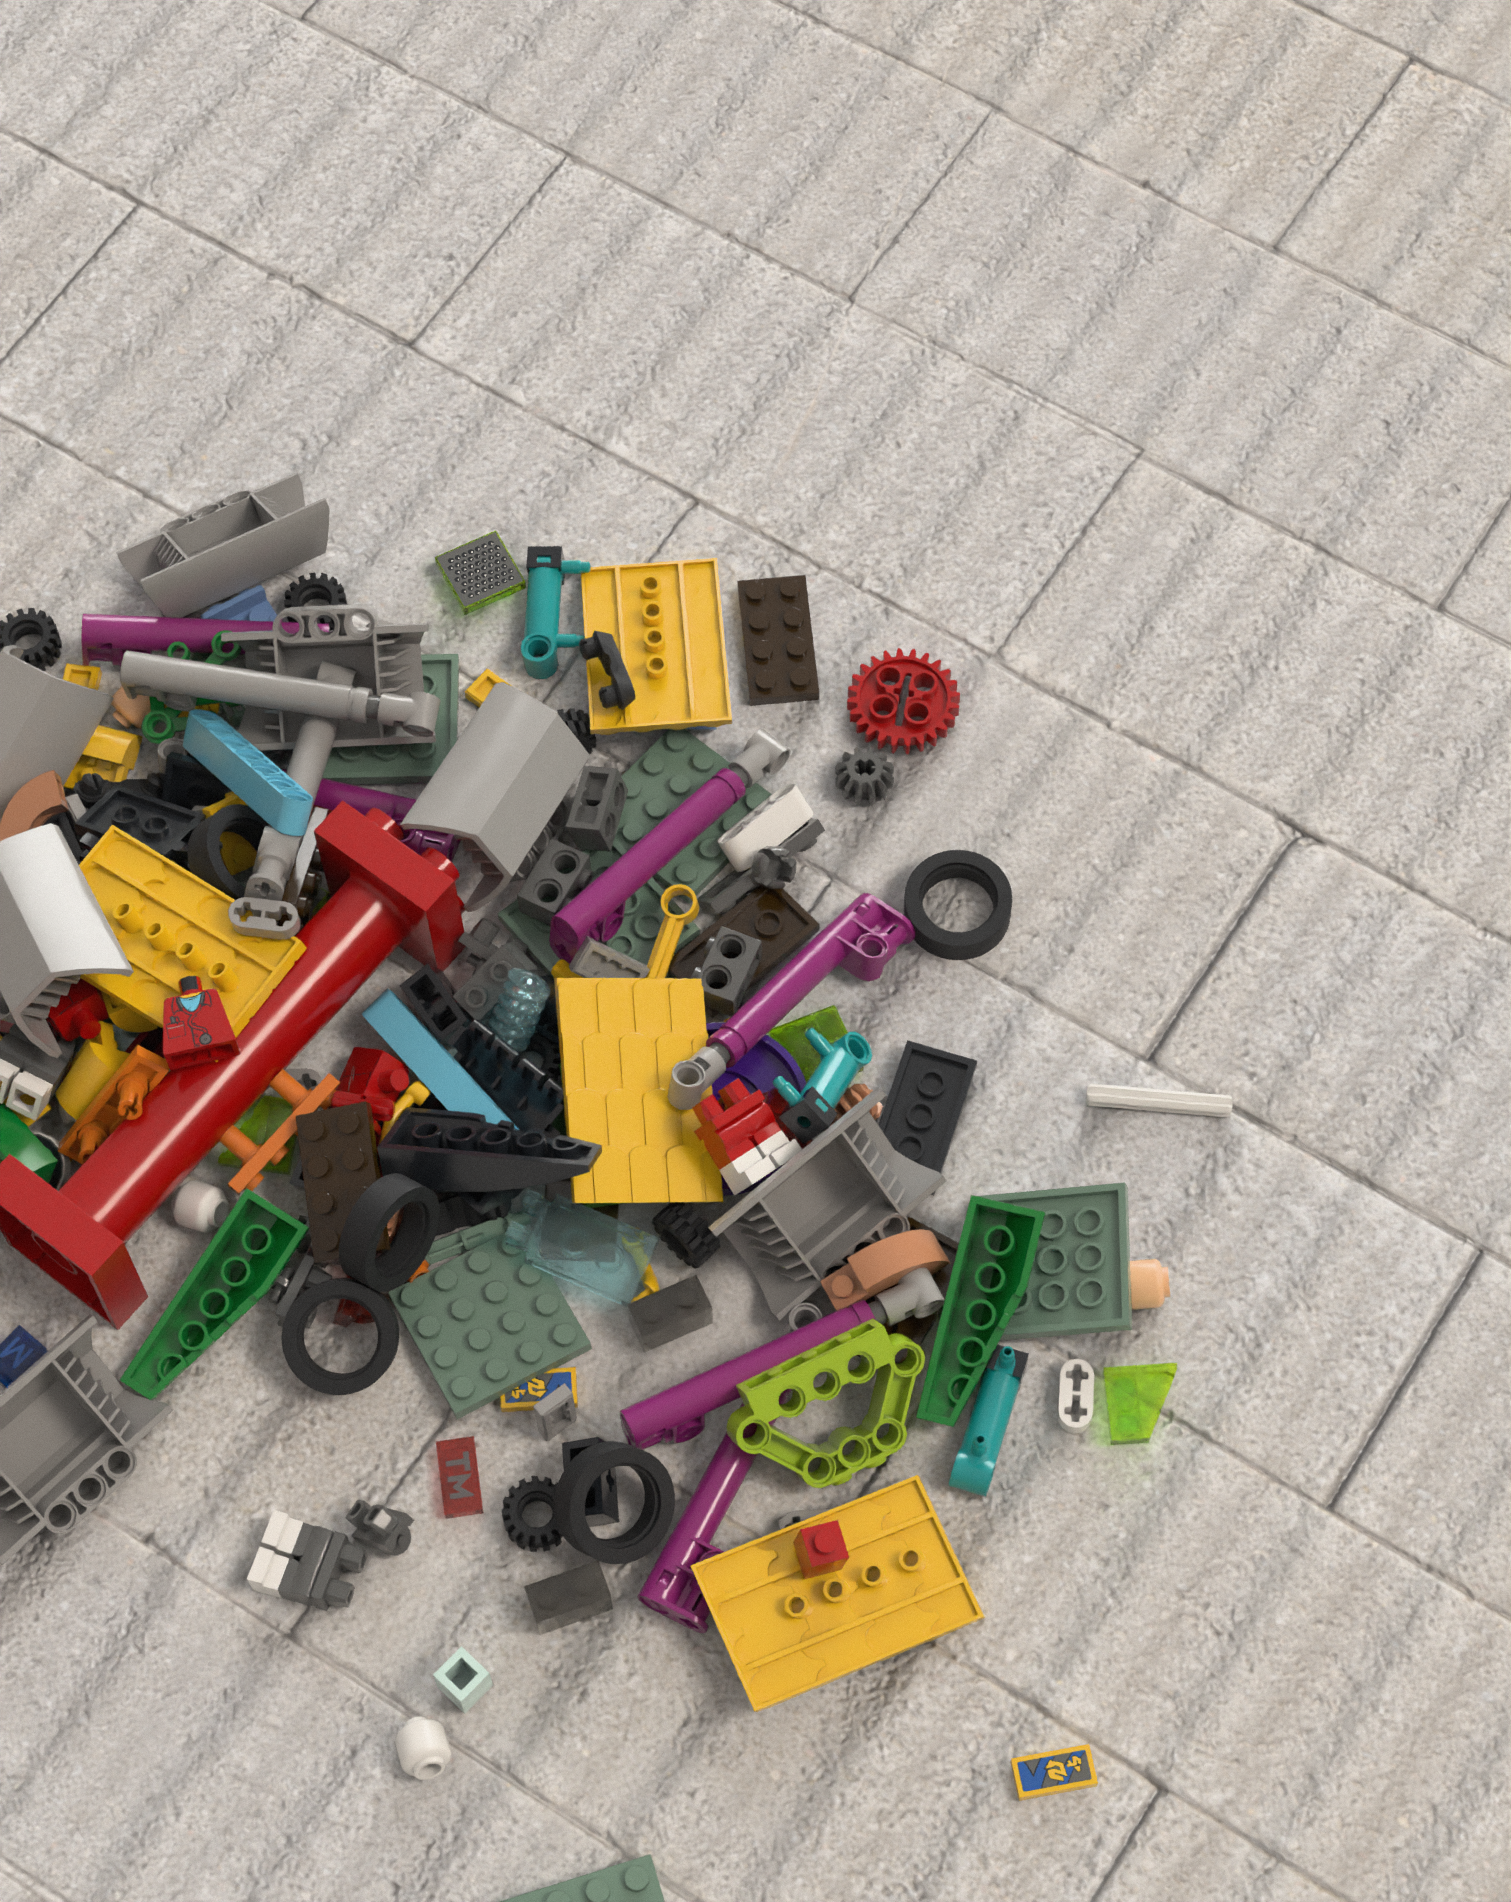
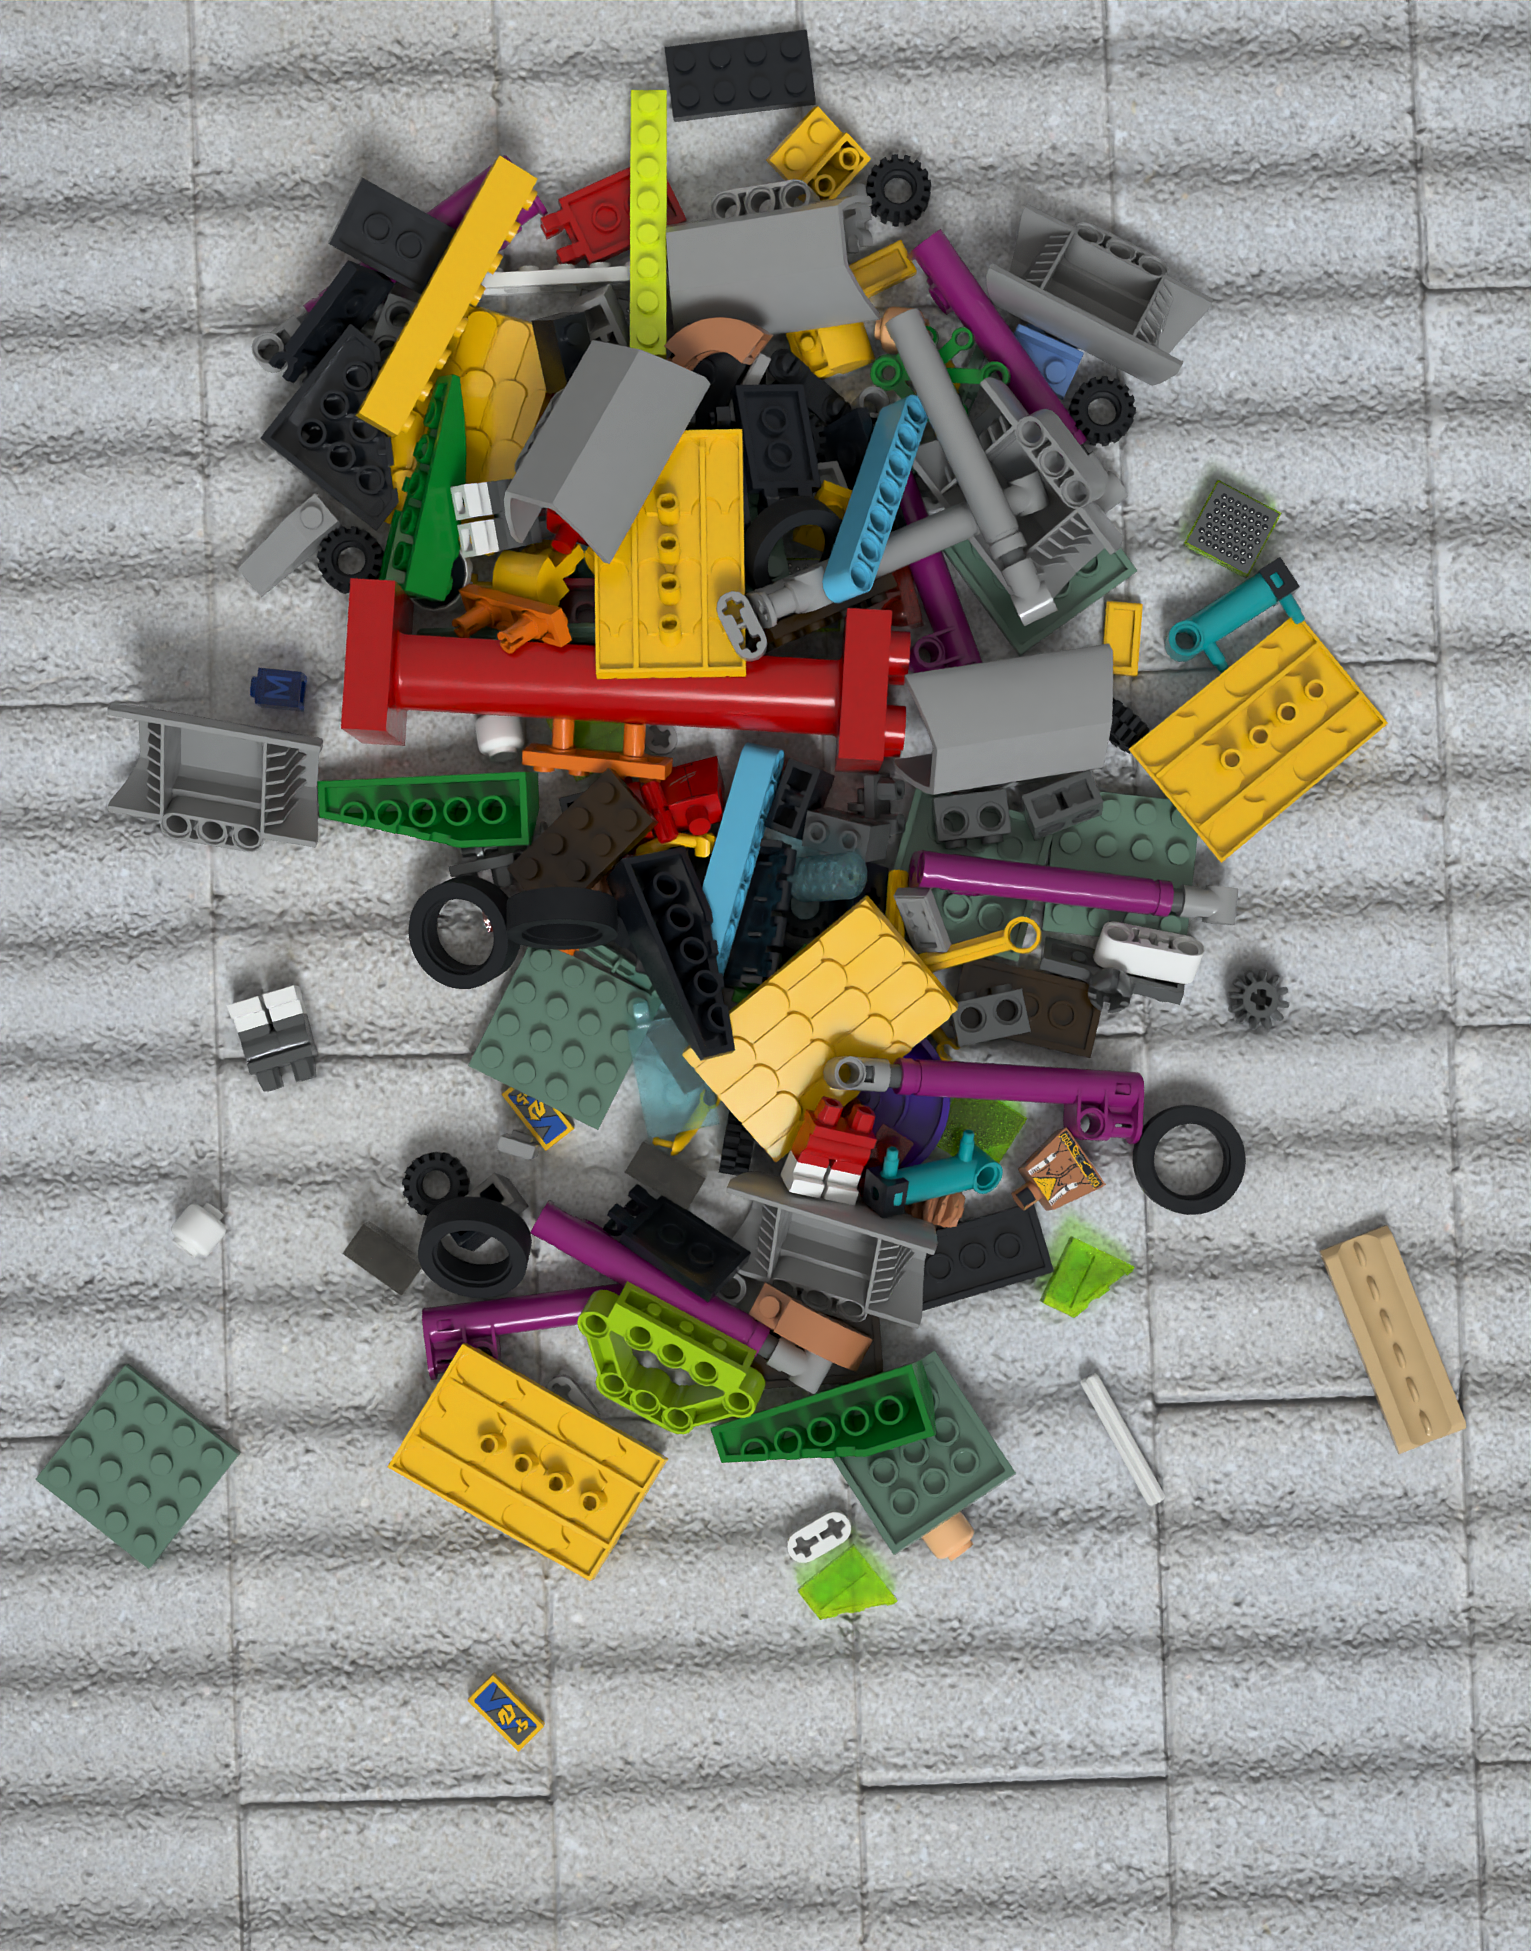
camera: 55 degrees right, 25 degrees up
(196, 1026) = (607, 646): red torso -> none
(380, 1527) = (339, 1074): dark grey hips -> none
(459, 1477) = (426, 1101): clear red tile -> none
(463, 1679) = (265, 1225): light aqua brick -> none
(621, 690) = (1218, 699): black piece -> none
(732, 1331) = (676, 1242): none -> black tile
(778, 640) = (1343, 832): dark brown plate -> none
(820, 1549) = (542, 1436): red brick -> none
(896, 1006) = (1056, 1174): none -> nougat torso
(935, 706) = (1365, 1013): red gear -> none
(989, 1421) = (710, 1495): teal piece -> none
(997, 1044) = (1081, 1277): none -> clear neon green wing
(1216, 846) = (1393, 1339): none -> tan plate

